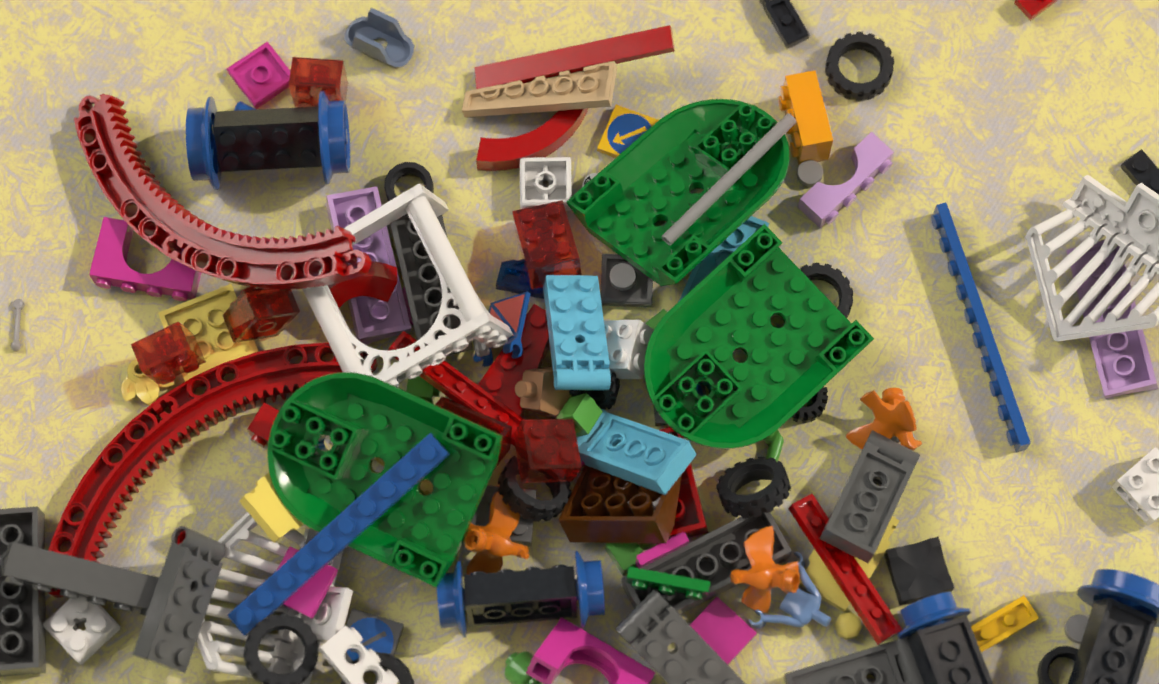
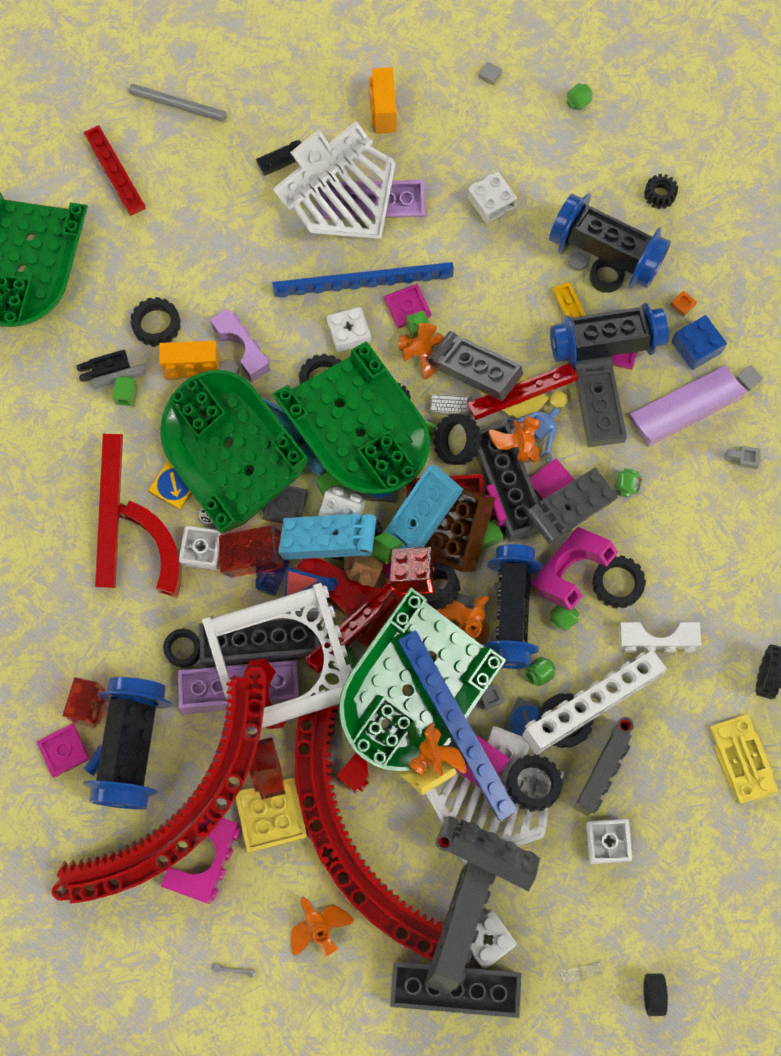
camera: 80 degrees left, 0 degrees up
(75, 410) = (318, 927): none -> orange animal
(140, 386) = (303, 868): light yellow plate -> none
(168, 353) = (288, 843): clear red brick -> none
(294, 508) = (435, 754): none -> orange animal
(365, 30) = (64, 641): sand blue piece -> none
(399, 587) = (492, 697): none -> light grey plate
(441, 648) = (540, 671): none -> bright green head
(564, 92) = (134, 518): tan wing -> none
(622, 276) = (284, 504): light grey tile -> none
(668, 583) = (522, 503): green plate -> none
(728, 179) = (231, 413): light grey piece -> none
(749, 47) = (125, 391): none -> bright green brick
(771, 36) = (110, 378): none -> light grey axle
(812, 473) = (449, 404): none -> white tile
(894, 334) = (352, 319): none -> white brick
(918, 570) = (528, 347): black brick -> none
(925, 411) = (413, 321): none -> bright green brick
(954, 395) = (405, 303): none -> dark pink tile

